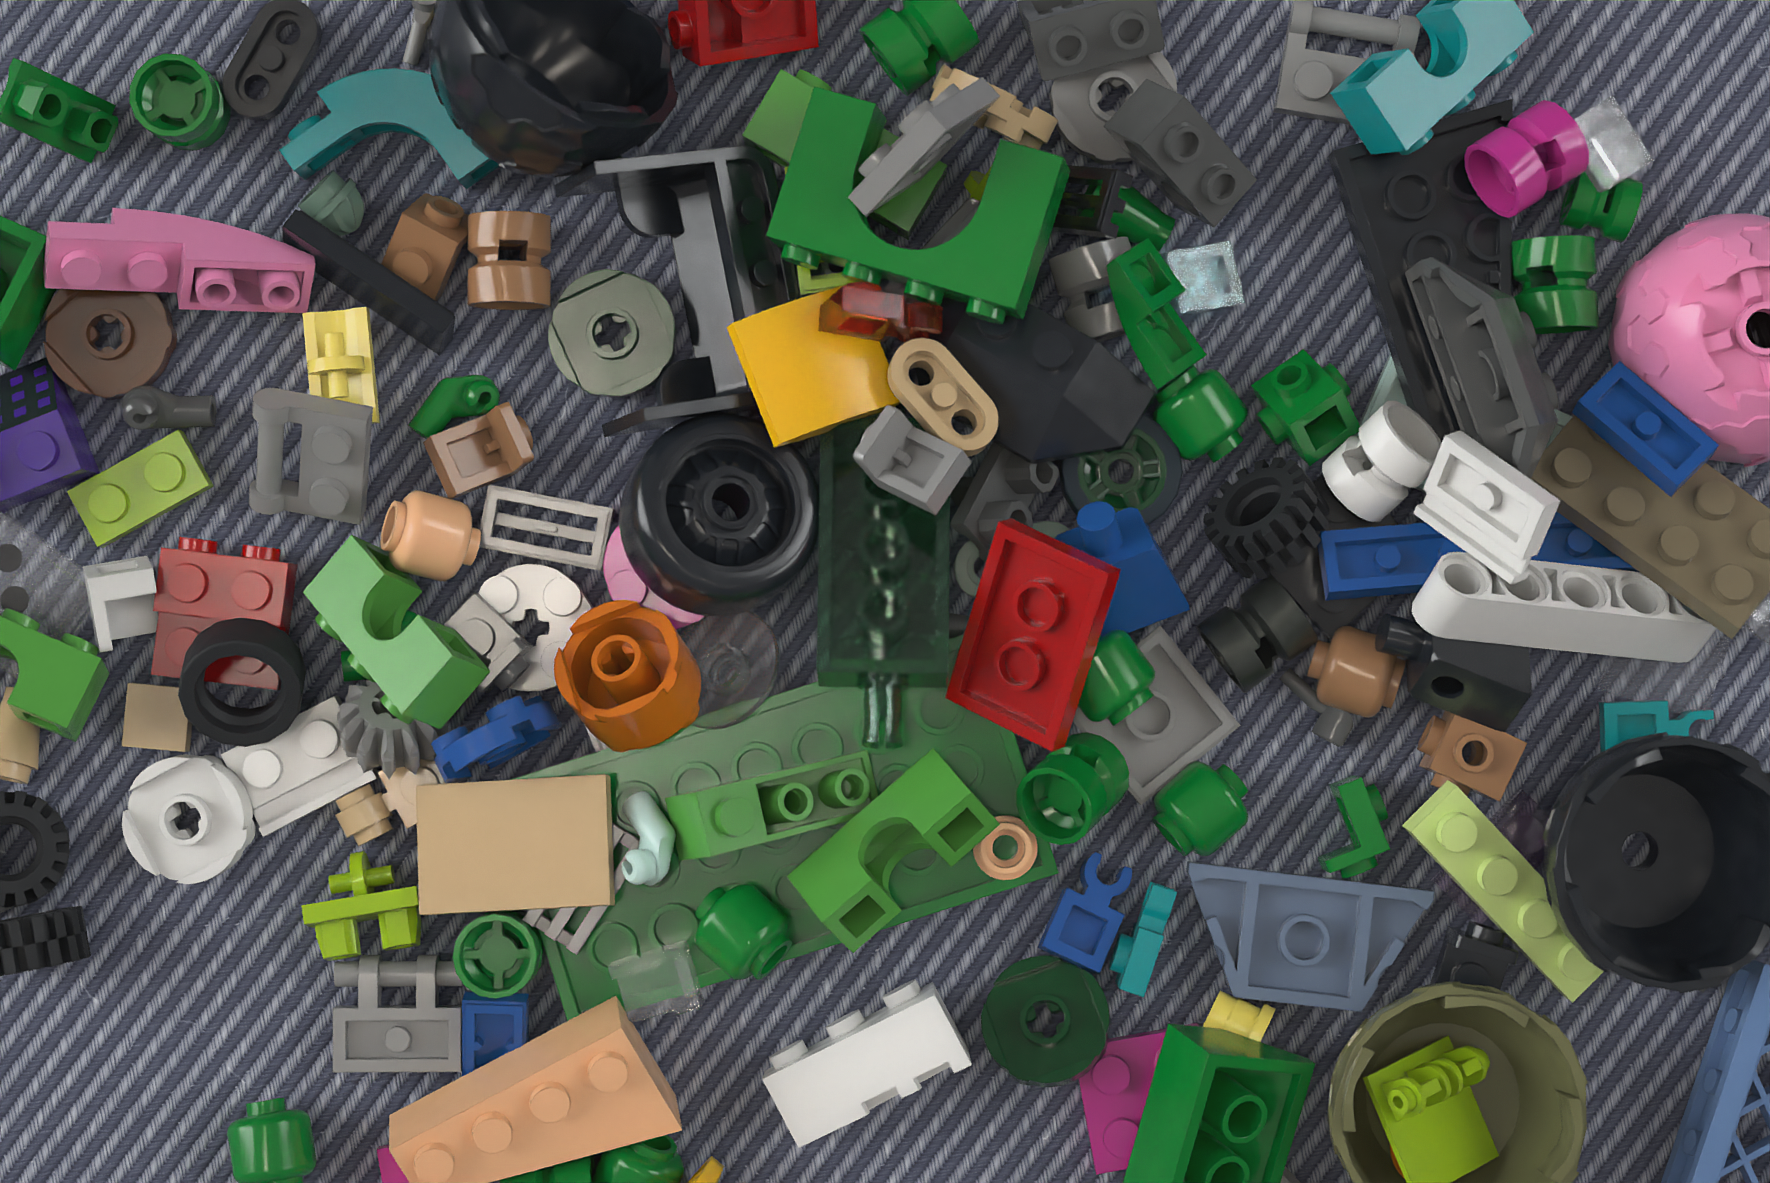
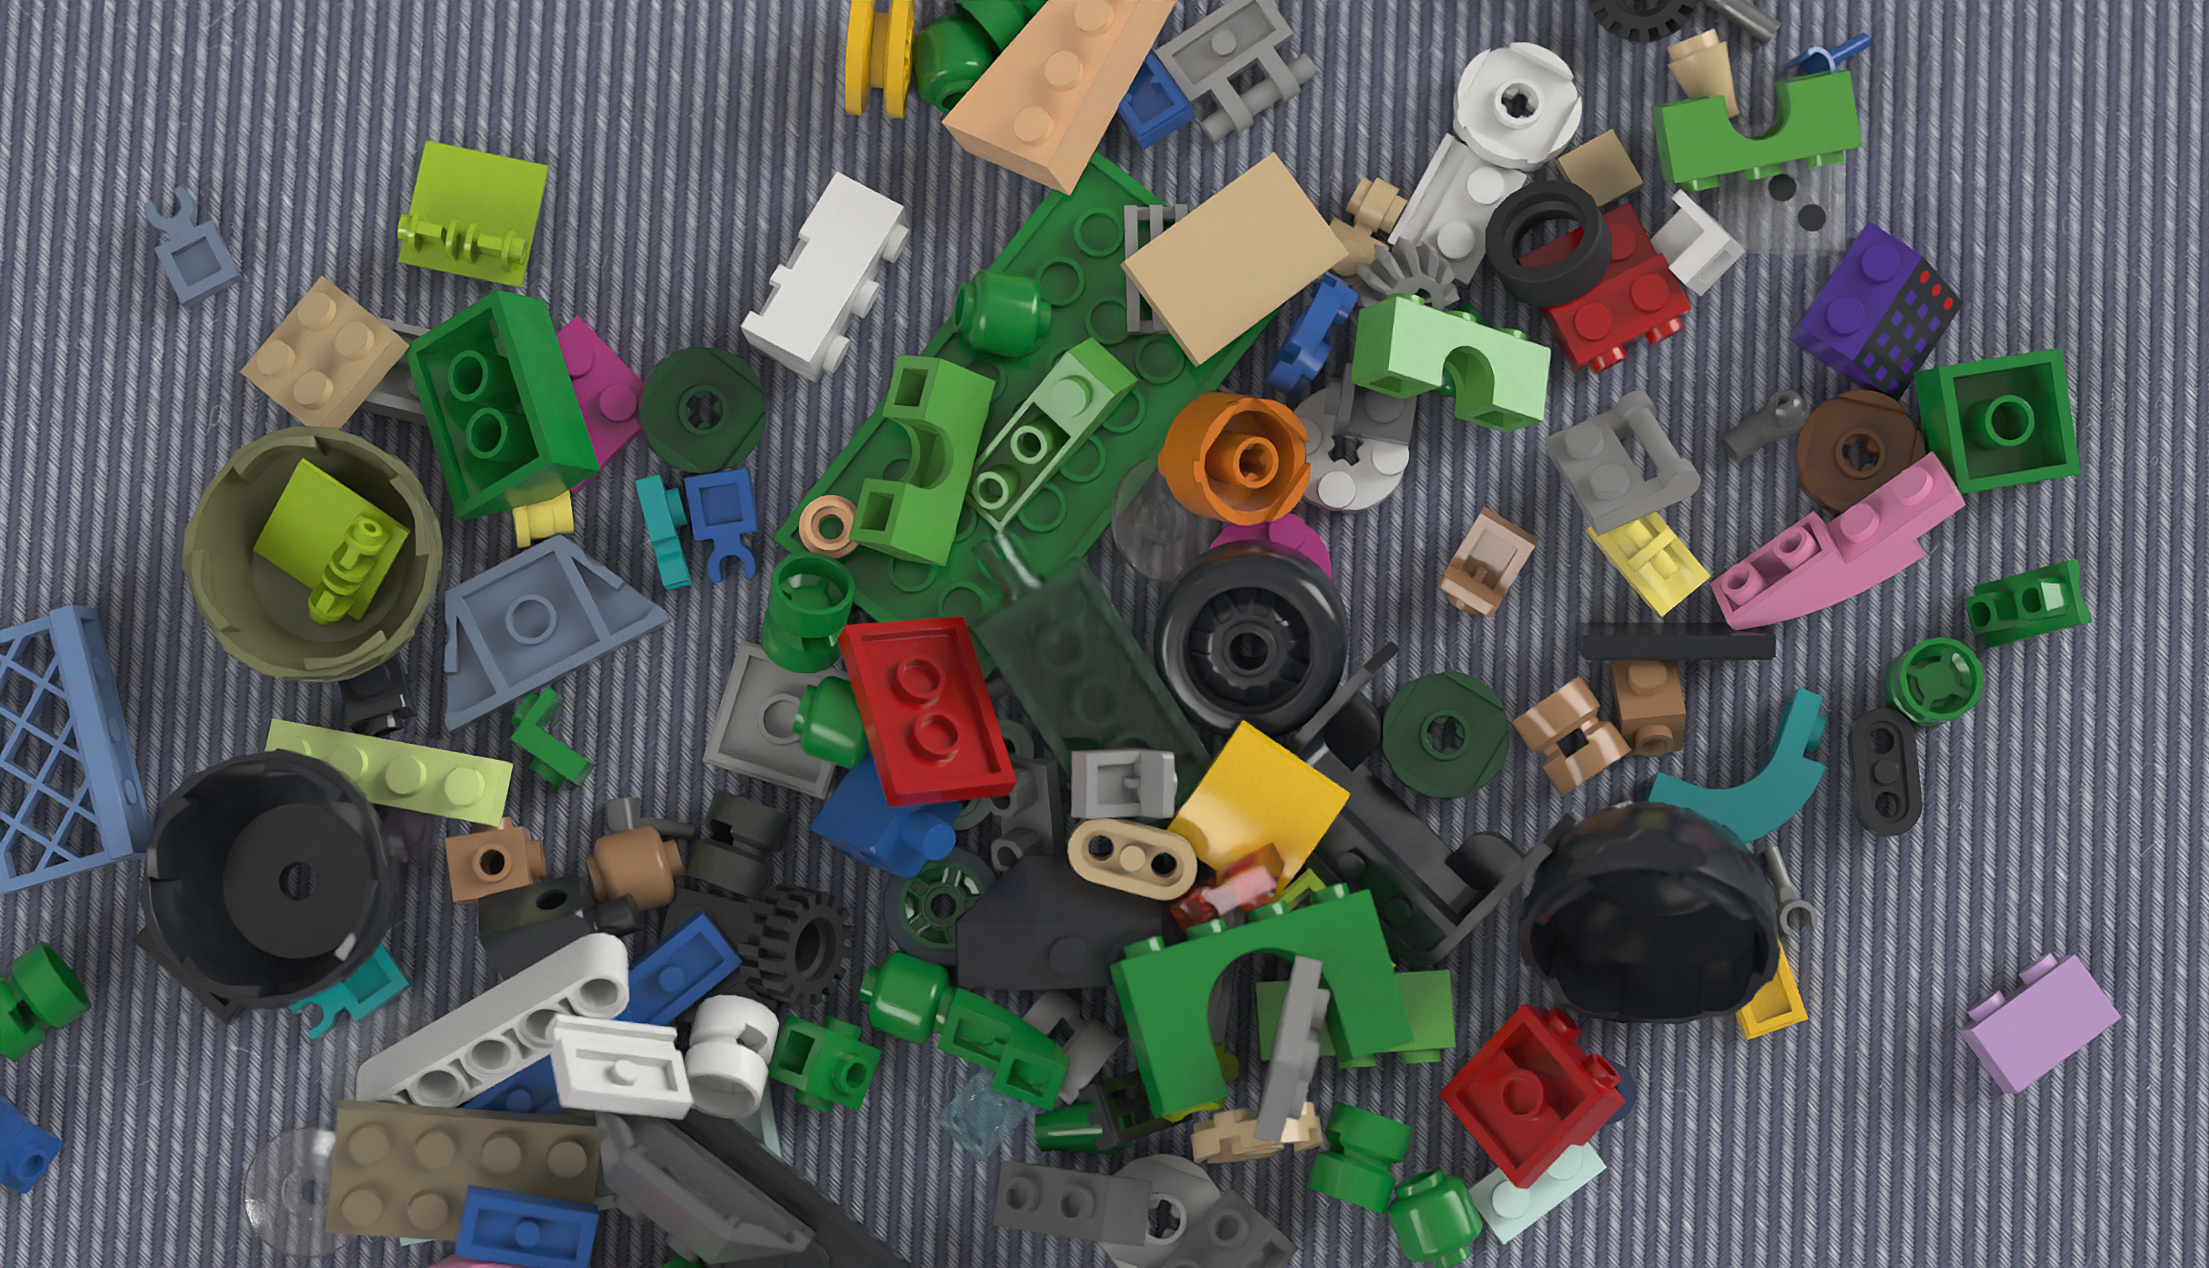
camera: 145 degrees right, 5 degrees down
(140, 488) = (1744, 347): lime plate -> none
(335, 204) = (1749, 686): sand green plate -> none
(337, 919) = (1338, 105): lime hips -> none
(429, 535) = (1479, 465): light nougat head -> none
(454, 399) = (1538, 594): green arm -> none
(498, 954) = (1187, 163): green wheel -> none
(598, 538) = (1440, 518): light grey tile -> none
(657, 838) = (1122, 342): light aqua arm -> none
(658, 982) = (1042, 229): clear panel -> none
(1201, 808) = (689, 669): green head -> none

